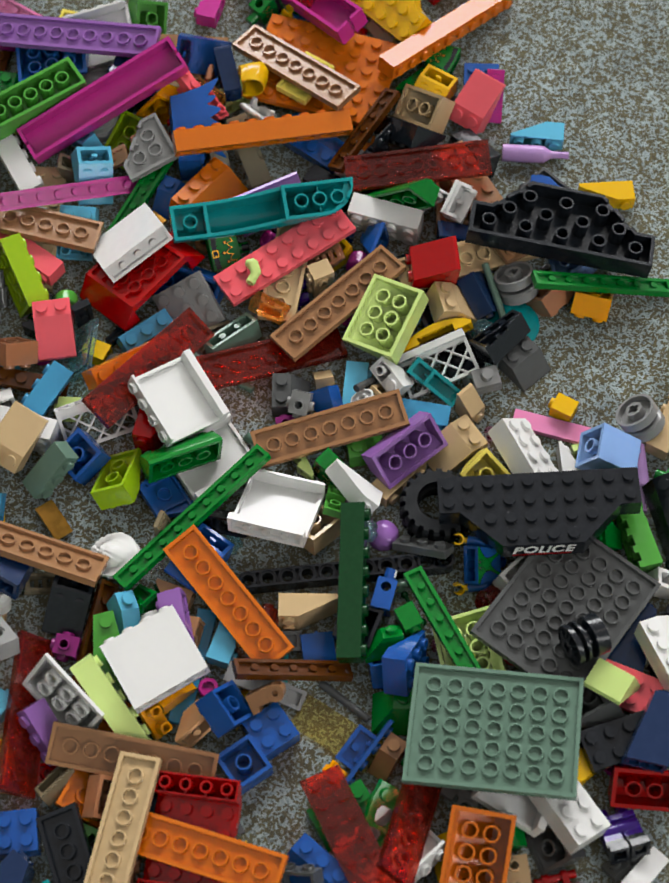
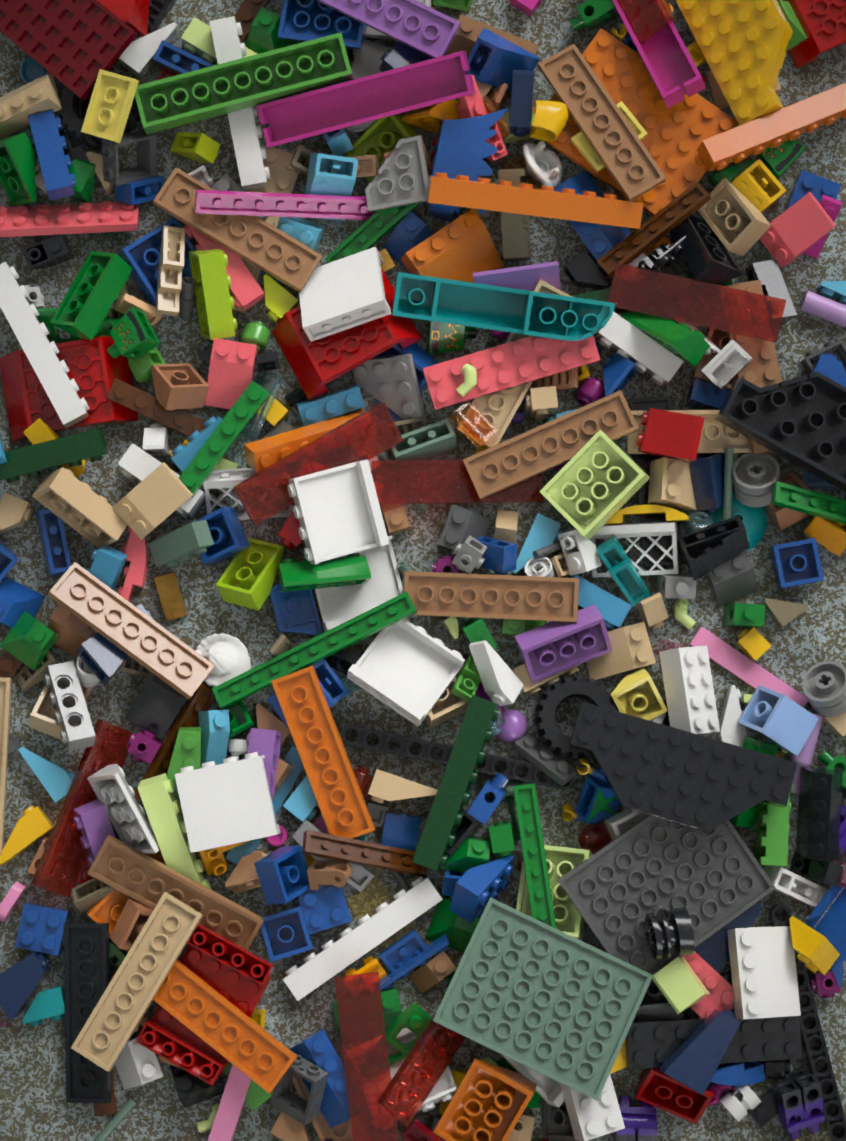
camera: 10 degrees right, 20 degrees up
(15, 499) = (137, 571): none -> coral slope
(62, 372) = (223, 437): none -> green plate
(75, 269) = (277, 299): none -> neon yellow slope
(231, 400) = (395, 518): none -> medium nougat slope
(314, 749) = (363, 938): none -> white brick
(494, 404) = (680, 613): none -> yellowish green arm
(547, 386) = (744, 616): none -> green torso
(574, 336) = (796, 563): none -> blue brick
(577, 376) = (783, 611): none -> dark tan slope

